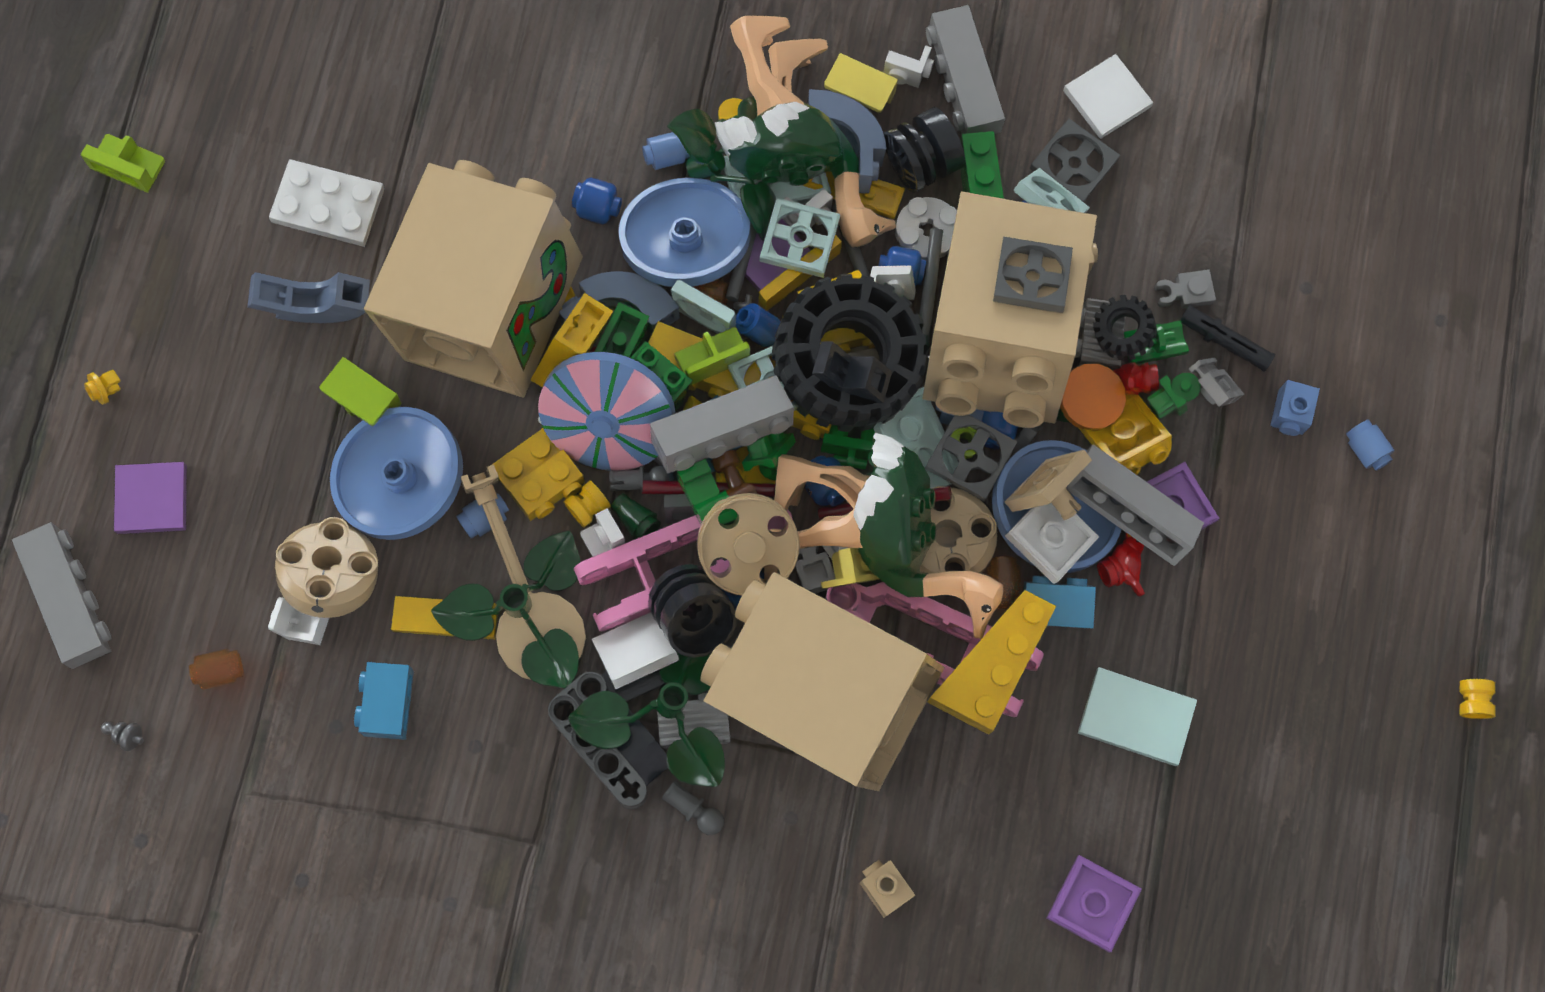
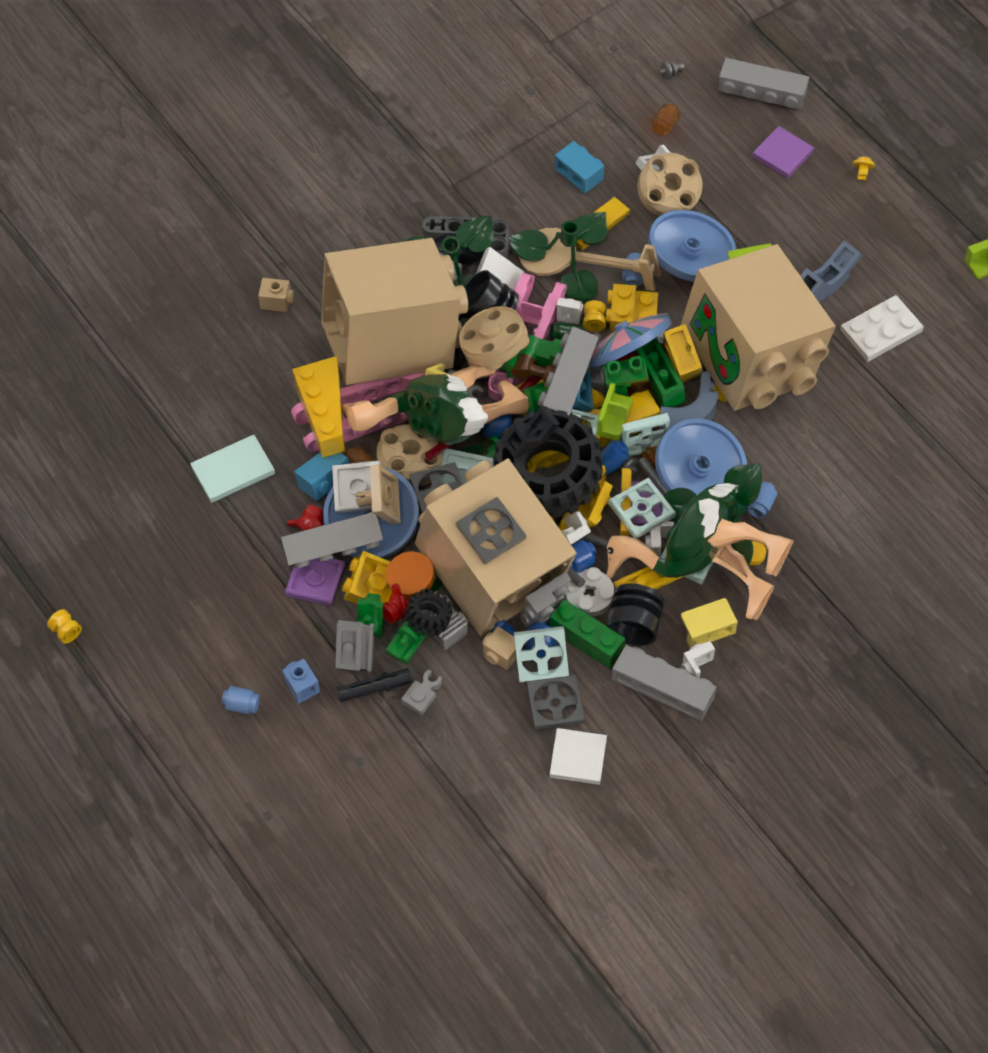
camera: 140 degrees right, 15 degrees down
(596, 200) = (763, 444): blue head -> none
(858, 127) = (679, 598): sand blue arch -> none
(1094, 903) = (171, 376): medium lavender tile -> none

